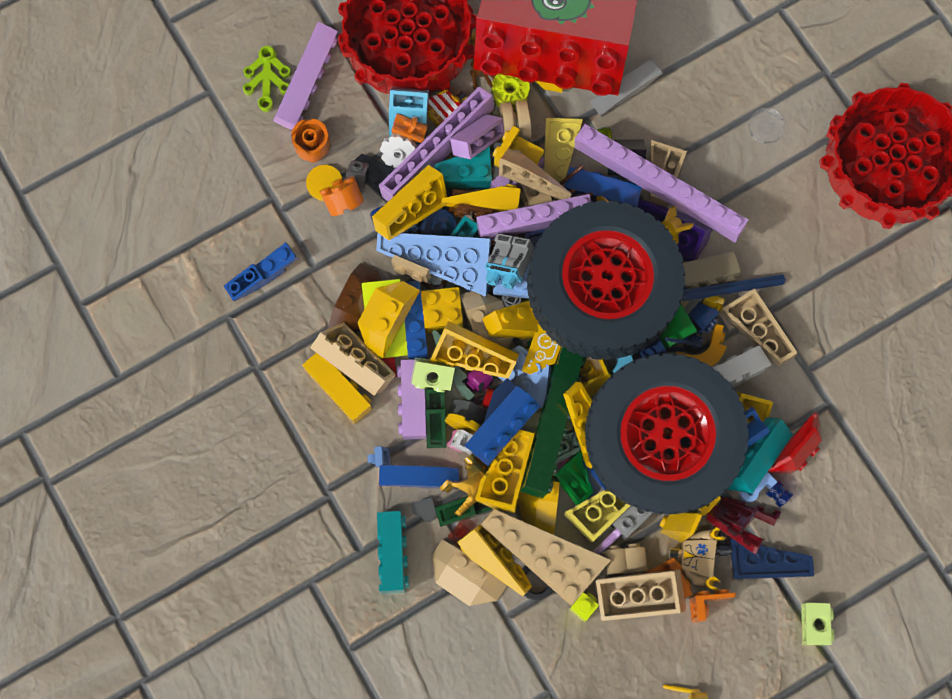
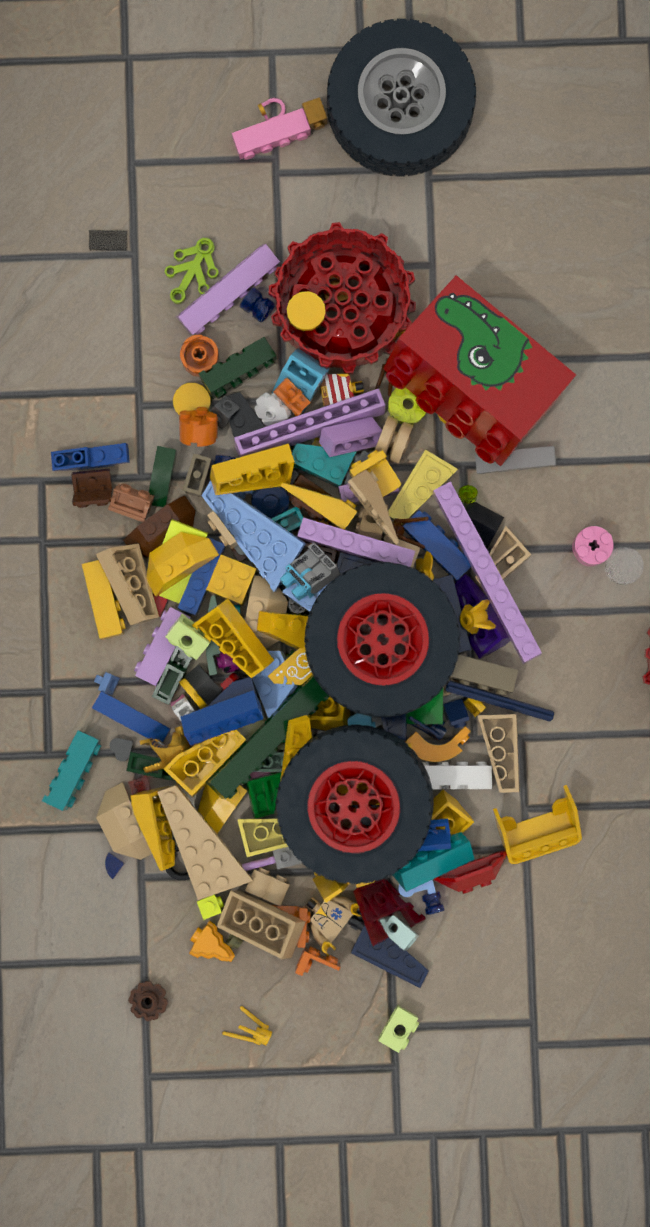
camera: 25 degrees right, 10 degrees up
(181, 91) = (108, 240): none -> clear smoke tile
(275, 295) = (92, 488): none -> reddish brown bracket
(317, 290) = (131, 502): none -> nougat hinge
(332, 256) = (162, 475): none -> dark green slope
(337, 75) = (255, 303): none -> clear blue wheel
(349, 134) = (238, 368): none -> dark green wedge
(364, 237) = (198, 475): none -> dark tan brick
(383, 49) = (306, 311): none -> yellow tile
(474, 619) = (113, 865): none -> clear blue tile
(602, 642) = (210, 944): none -> light orange rock
(623, 626) = (234, 941): none -> olive plate
(732, 121) = (602, 541): none -> bright pink brick
(773, 533) = (404, 936): none -> light aqua torso
(838, 380) = (542, 833): none -> yellow windscreen

